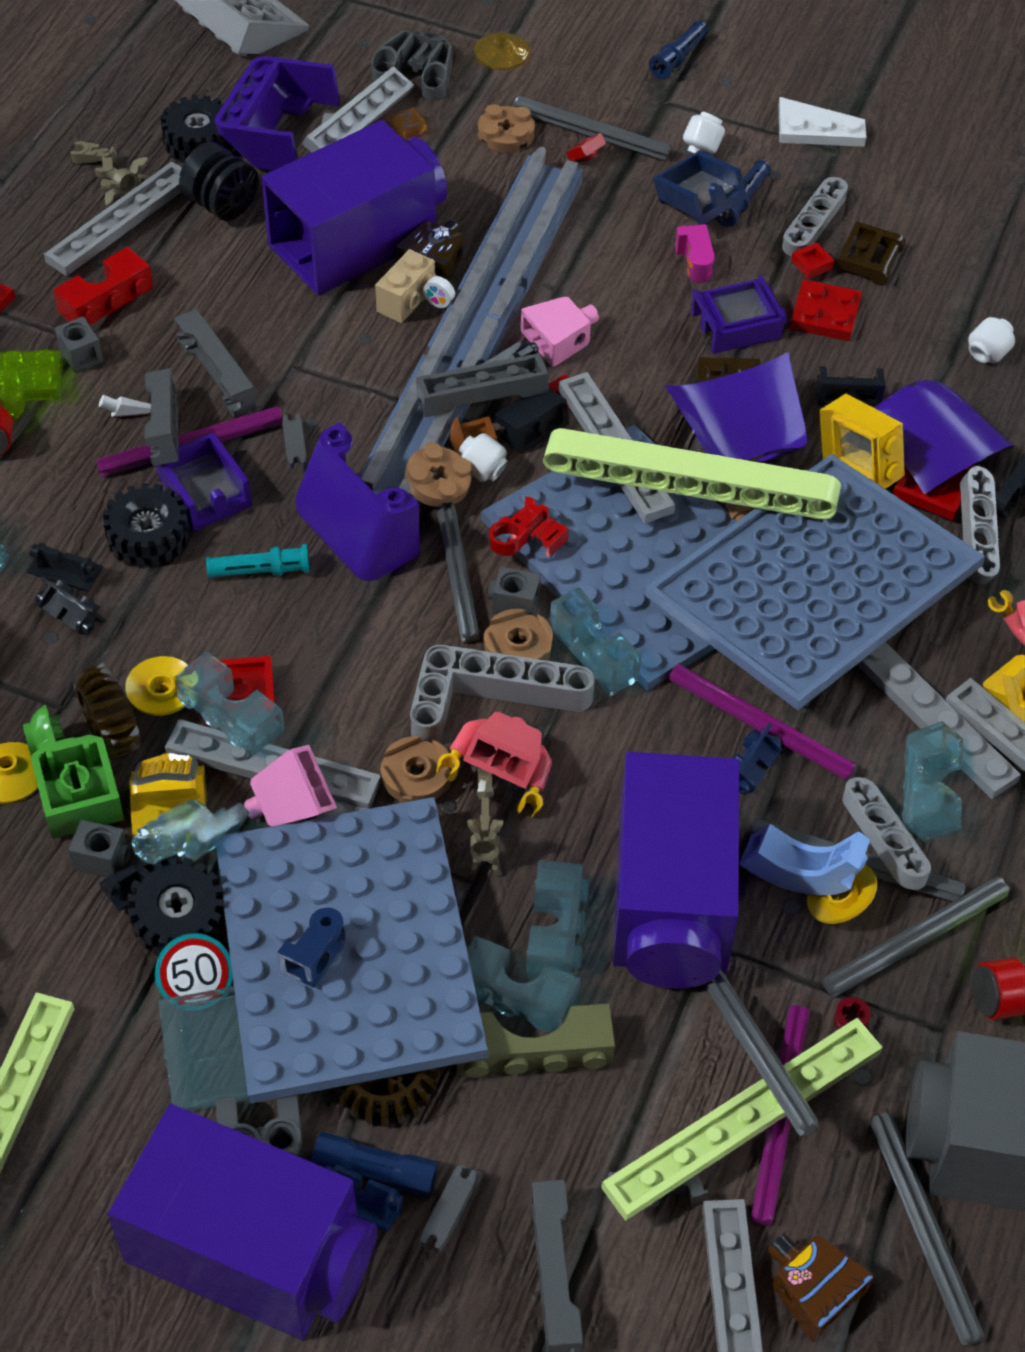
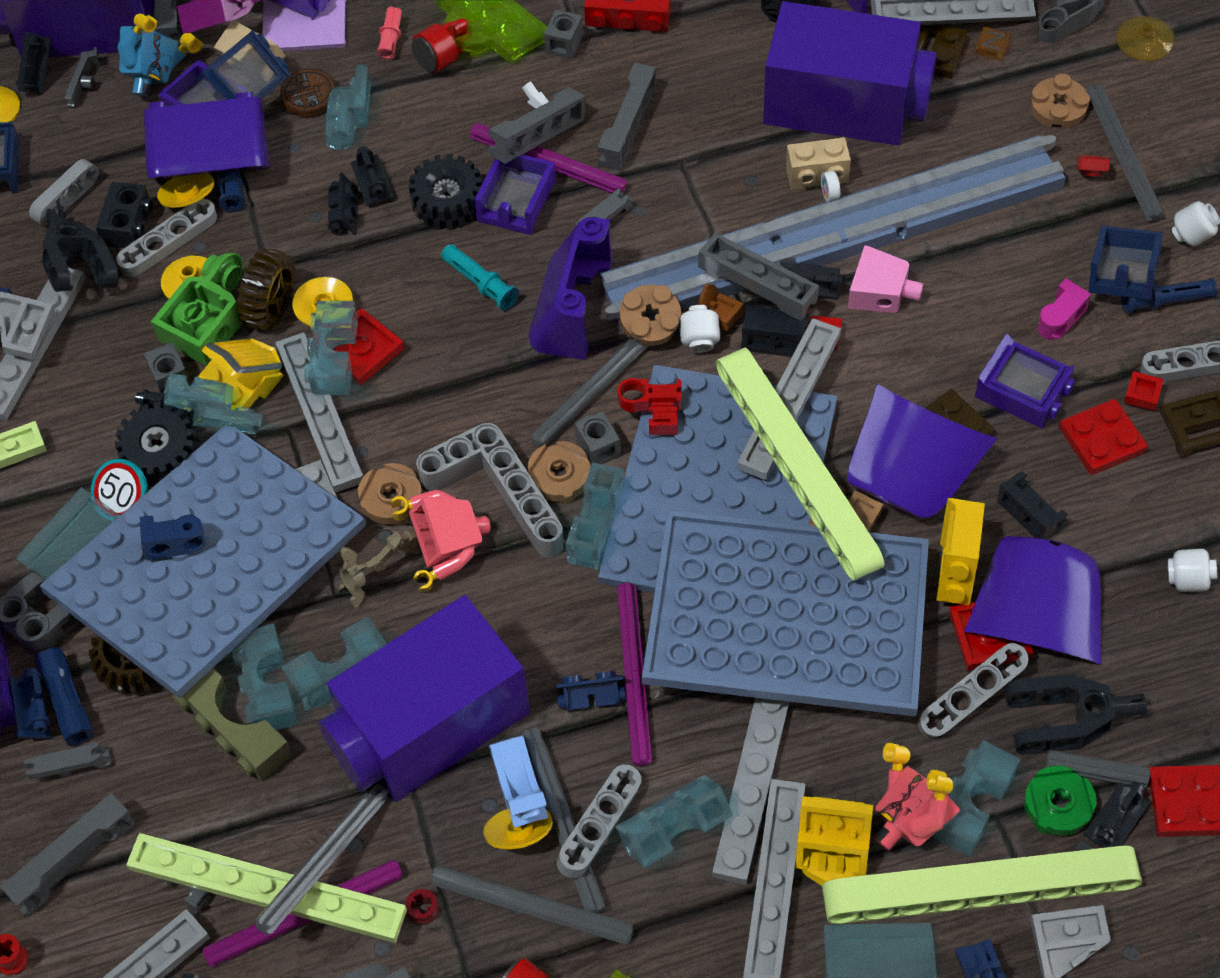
camera: 55 degrees right, 5 degrees up
(290, 789) = (296, 434): bright pink torso -> none
(436, 242) = (874, 154): dark brown torso -> none

